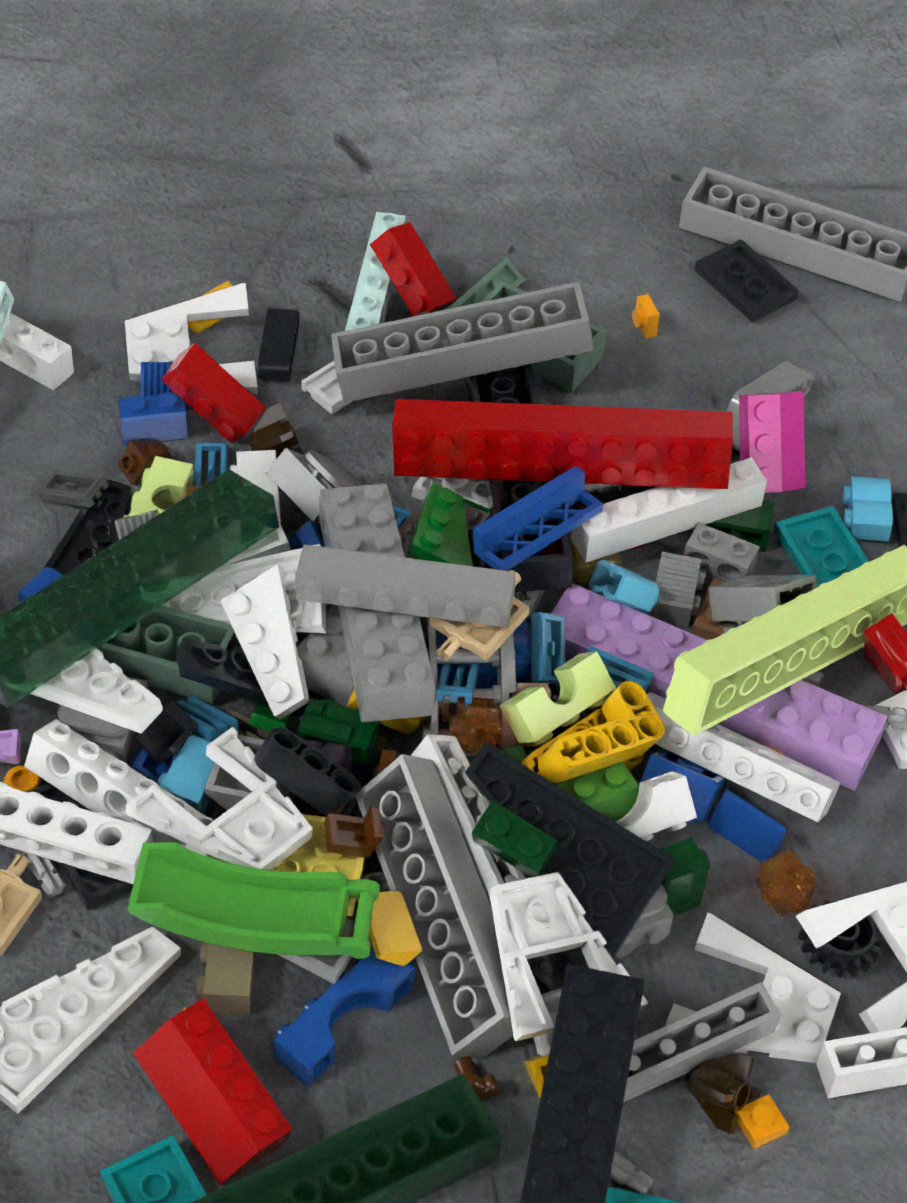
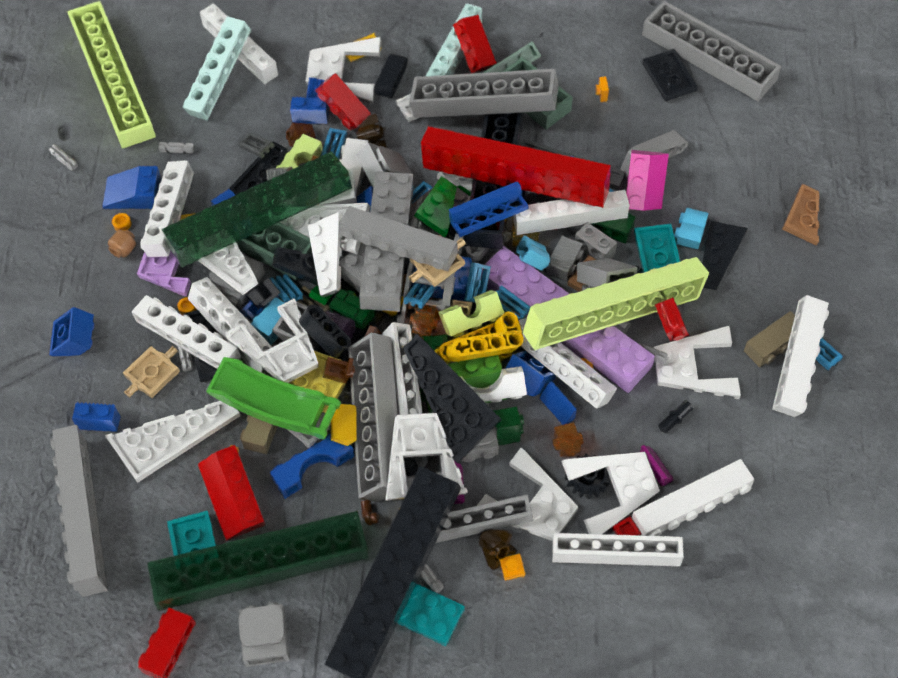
camera: 20 degrees right, 10 degrees up
(514, 840) = (416, 391): dark green brick -> none

